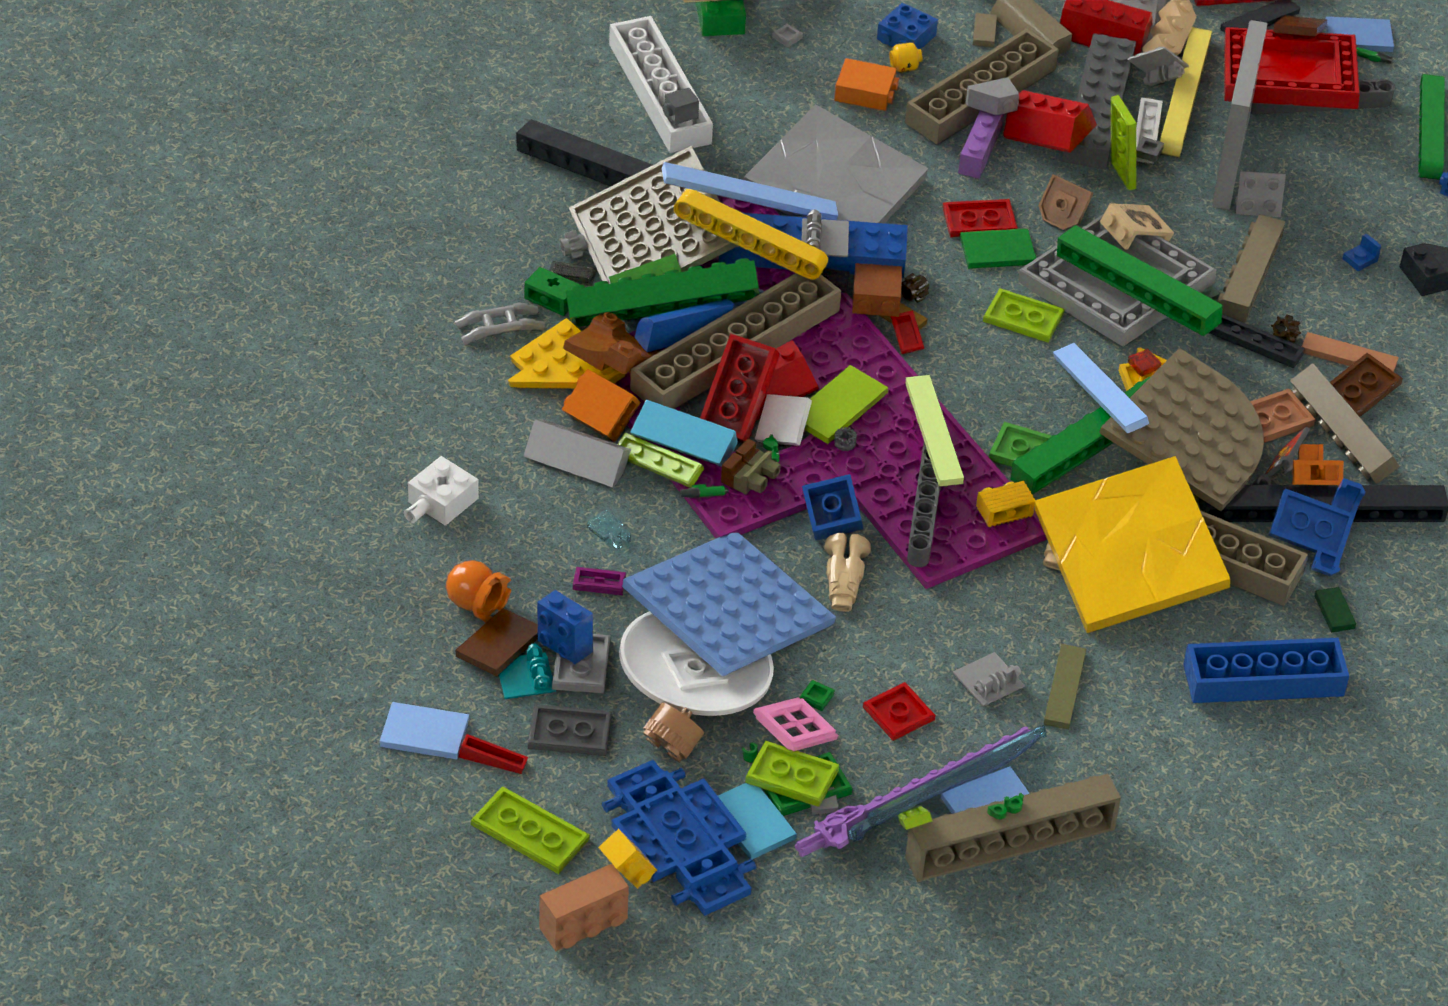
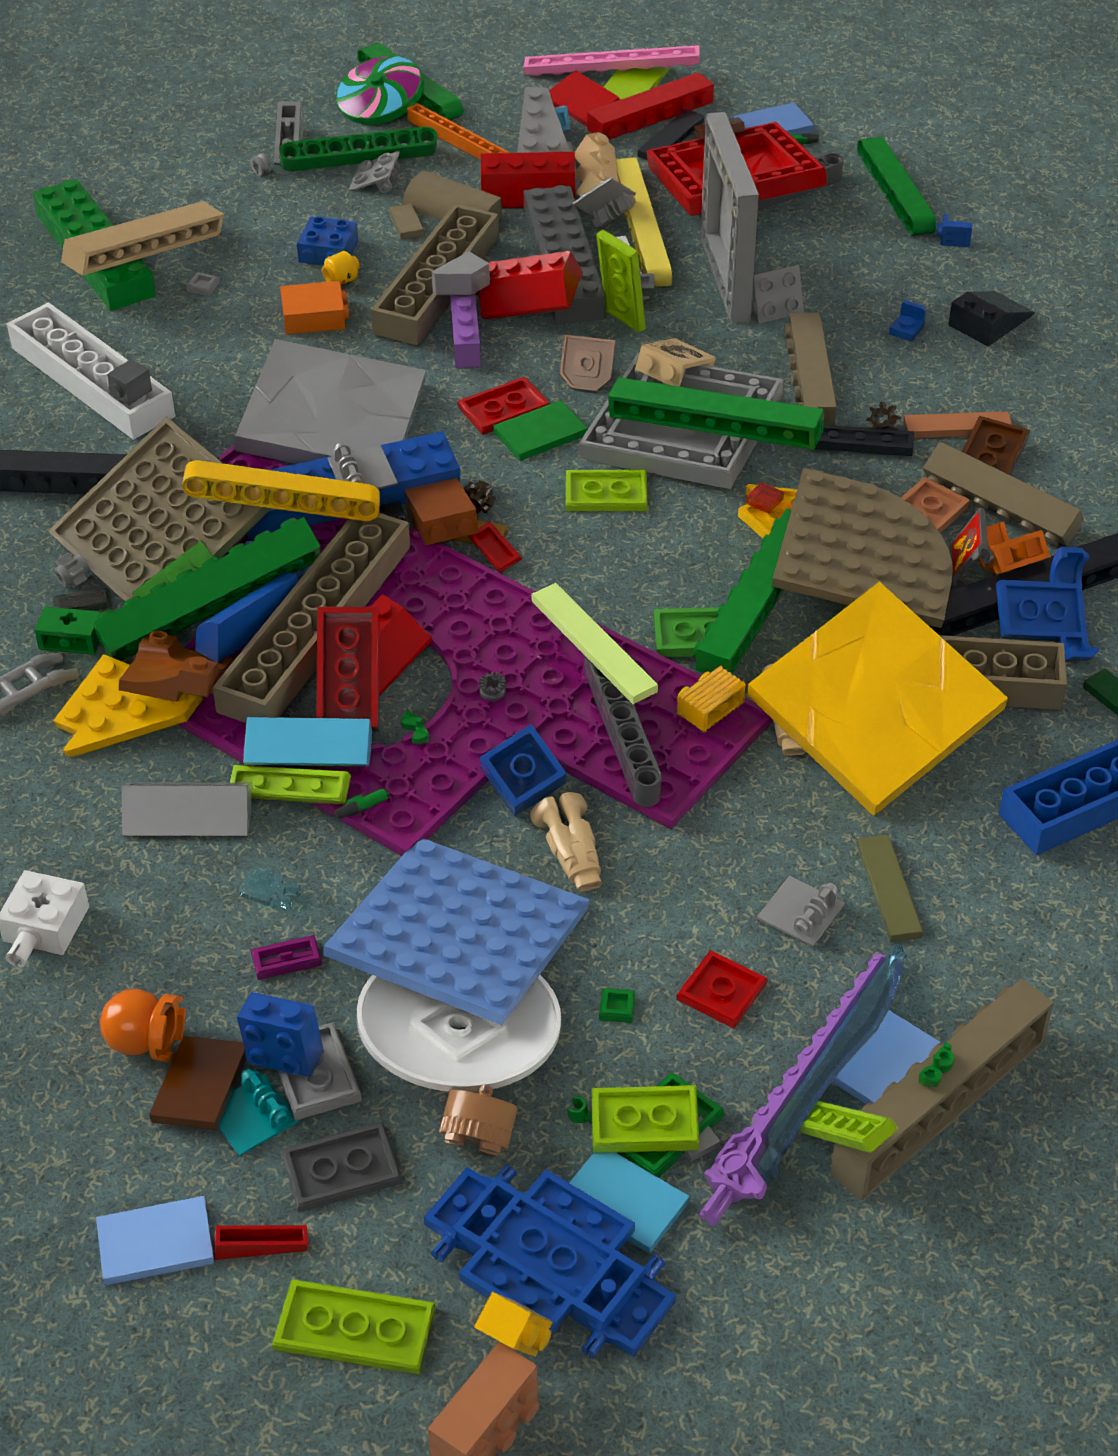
camera: 20 degrees left, 0 degrees up
(600, 405) = (191, 742): orange brick -> none
(747, 191) = (248, 447): light blue tile -> none
(747, 468) = (400, 757): olive hips -> none
(783, 418) = (412, 686): white tile -> none
(823, 734) = (640, 1066): bright pink piece -> none
(842, 402) = (464, 650): lime tile -> none
(1101, 388) = (746, 537): light blue tile -> none

